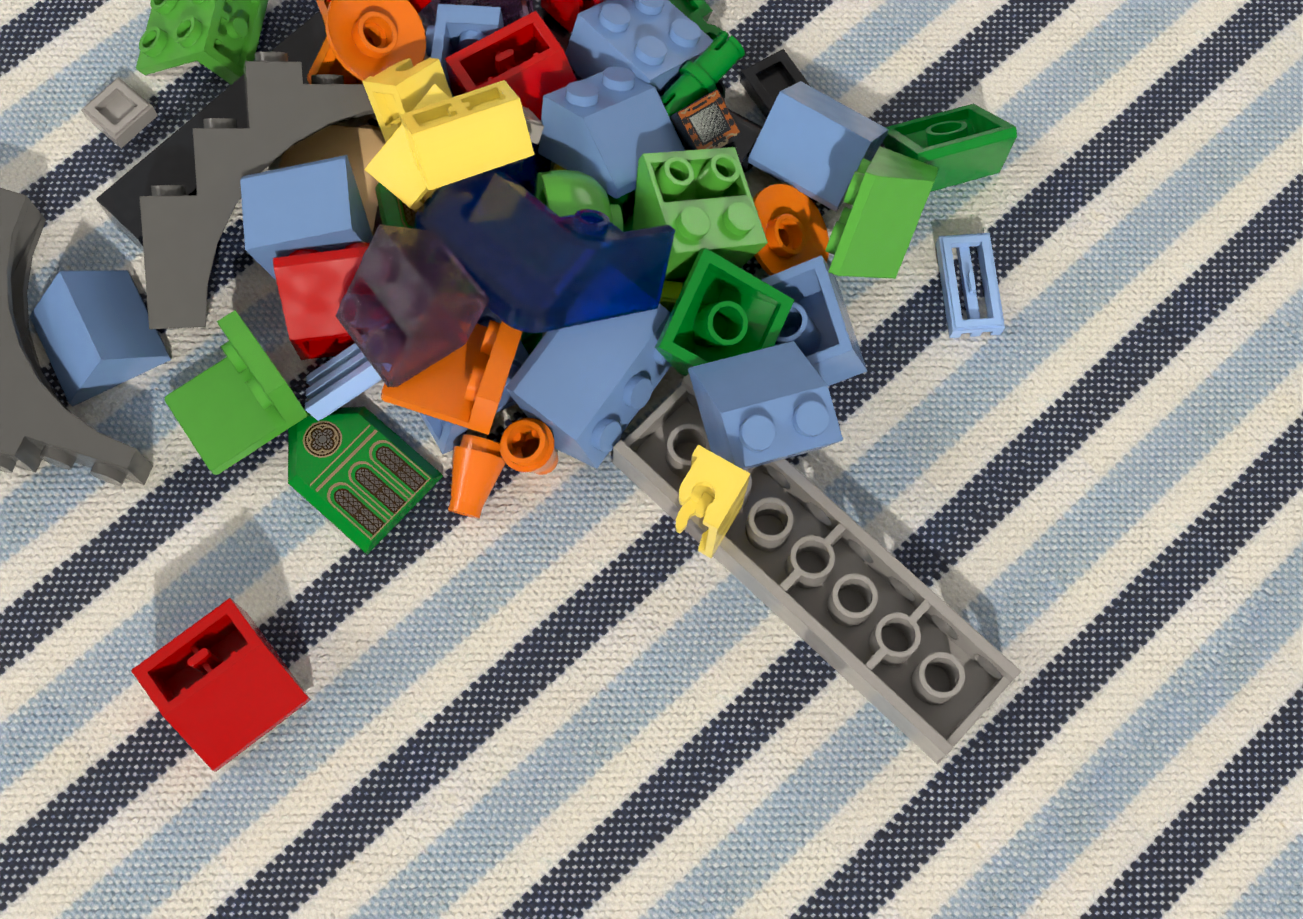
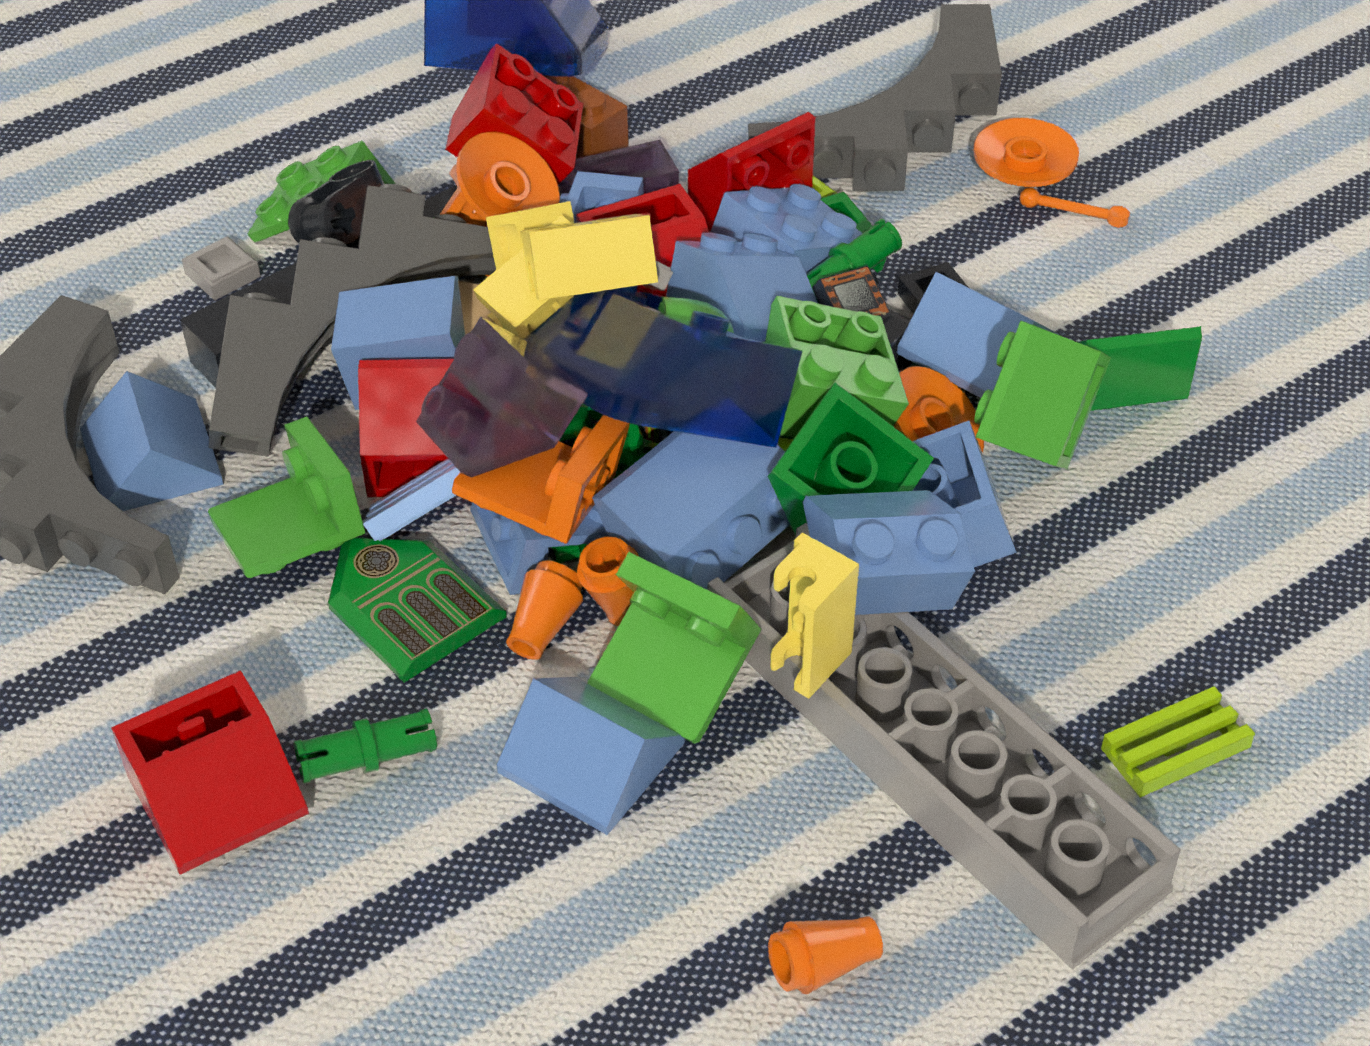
camera: 10 degrees right, 25 degrees down
(219, 52) = (335, 206): none -> black piece
(346, 632) = (365, 745): none -> green pin
(531, 608) = (585, 750): none -> medium blue slope
(590, 516) = (674, 649): none -> bright green bracket
(744, 784) = (822, 950): none -> orange cone
(973, 324) = (1147, 524): light blue tile -> none
(1043, 518) = (1169, 733): none -> lime tile

